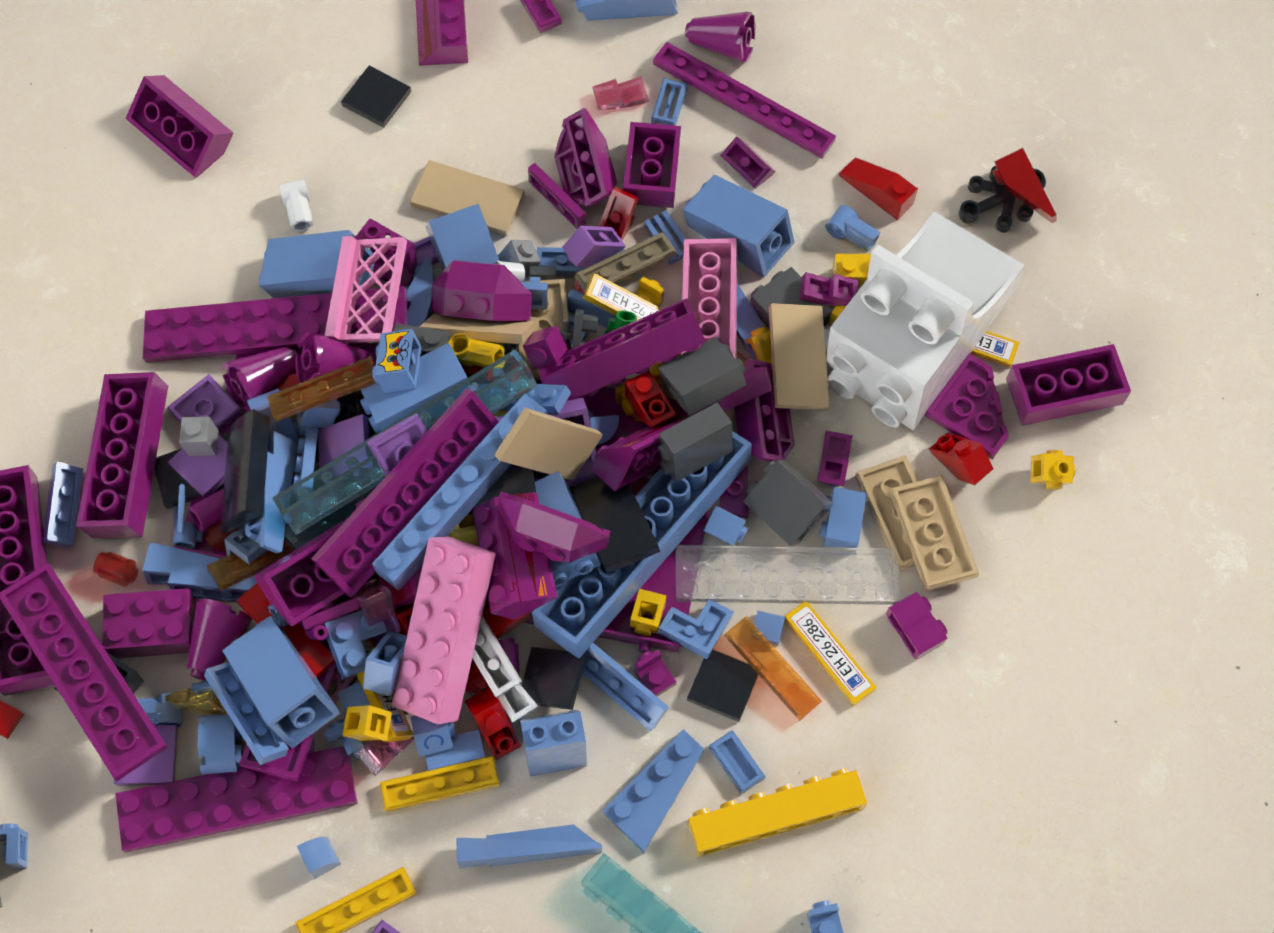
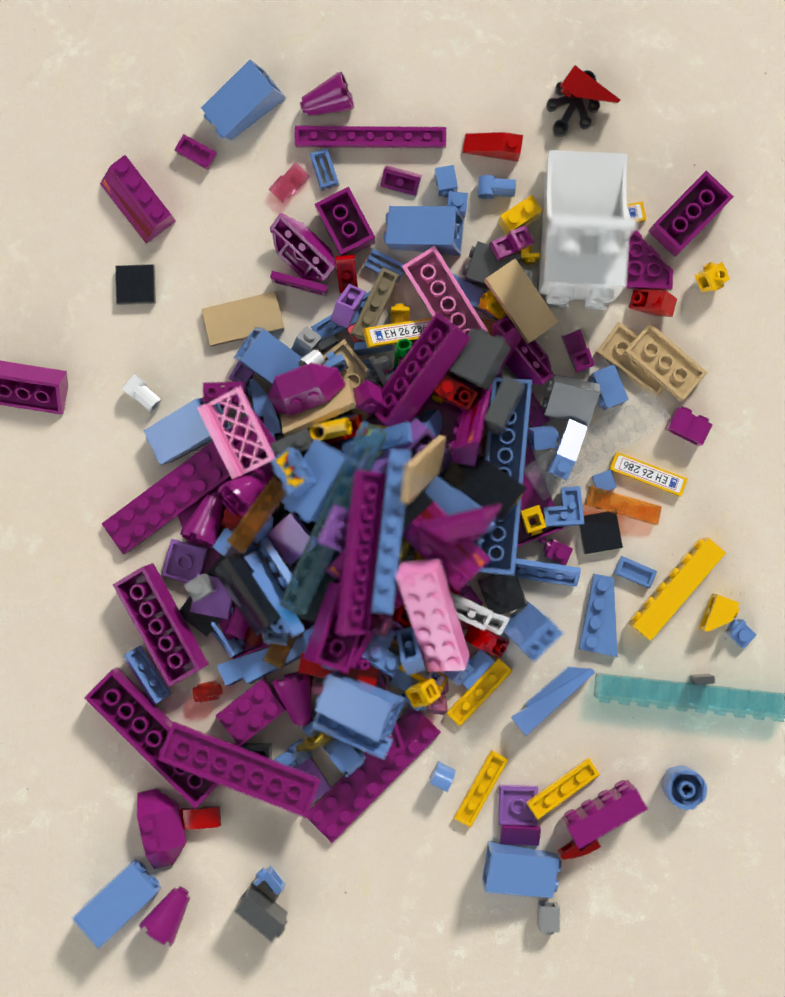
camera: 30 degrees left, 20 degrees up
(741, 553) = (567, 450): none -> slope
(798, 189) = (445, 180): none -> medium blue brick
(800, 217) = (459, 200): none -> medium blue brick
(813, 878) = (718, 612): none -> yellow slope

